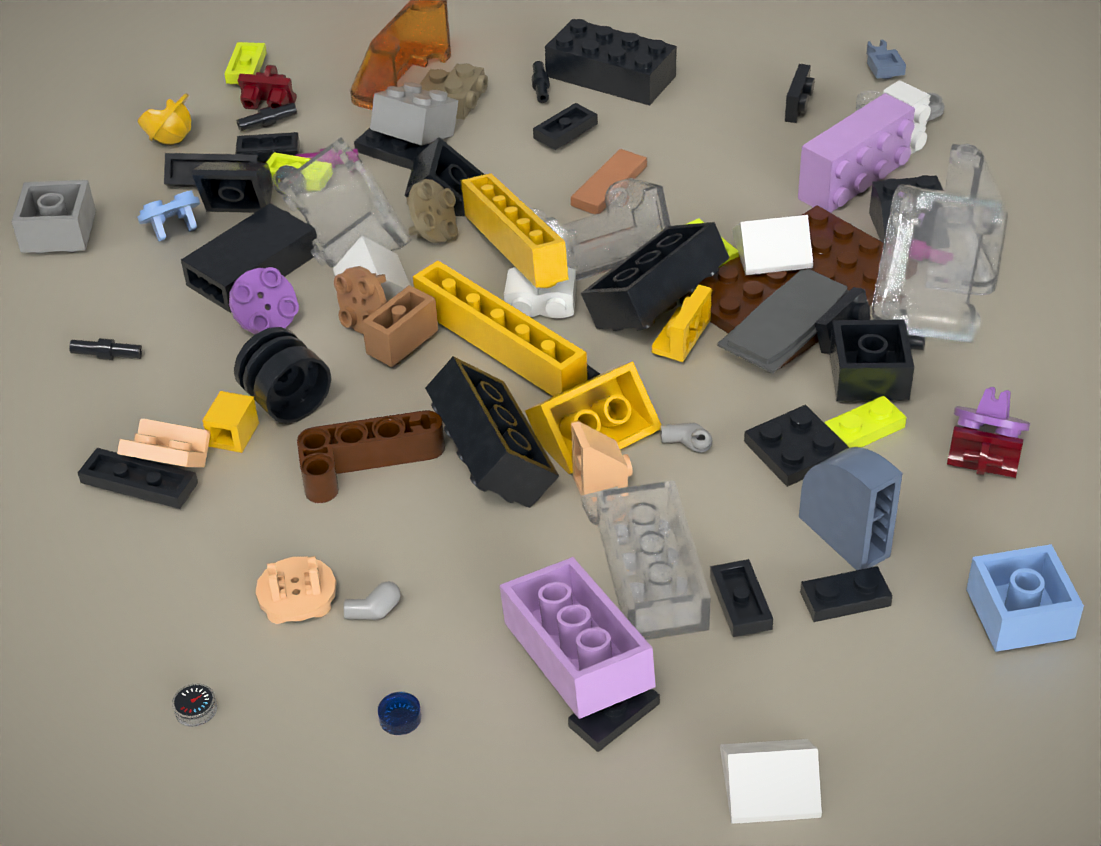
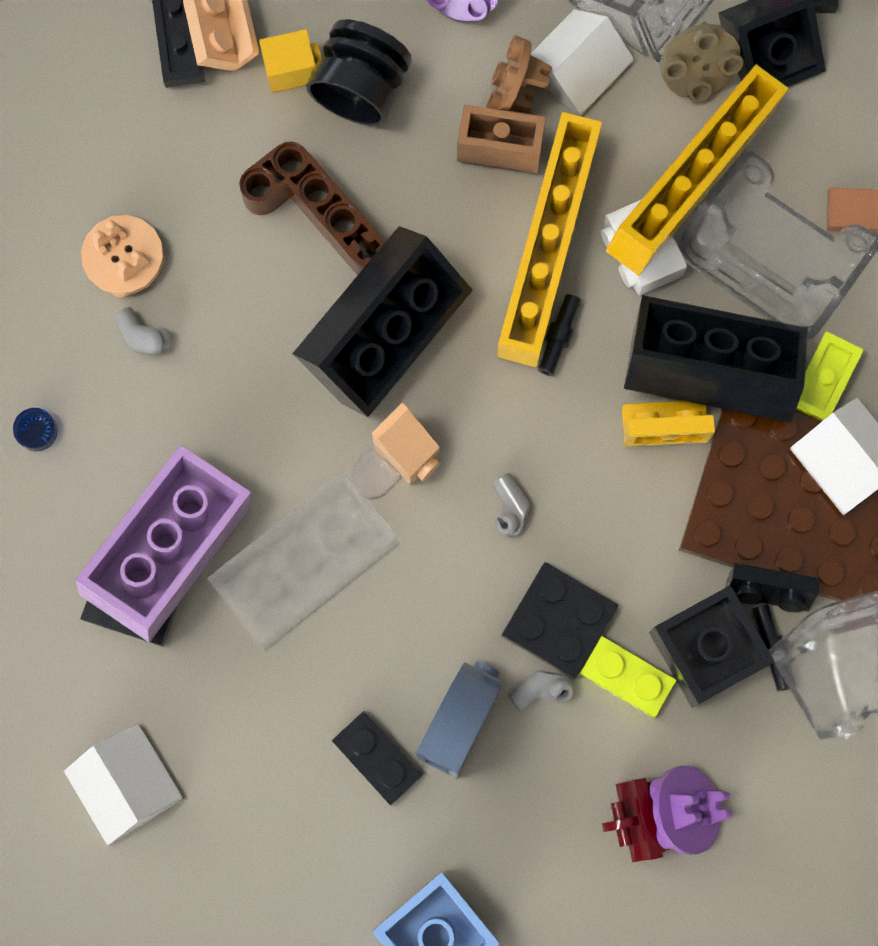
camera: 60 degrees right, 35 degrees up
(609, 403) = (480, 402): yellow slope -> none
(741, 598) = (314, 663): black plate -> none
(784, 320) = (734, 526): dark grey piece -> none

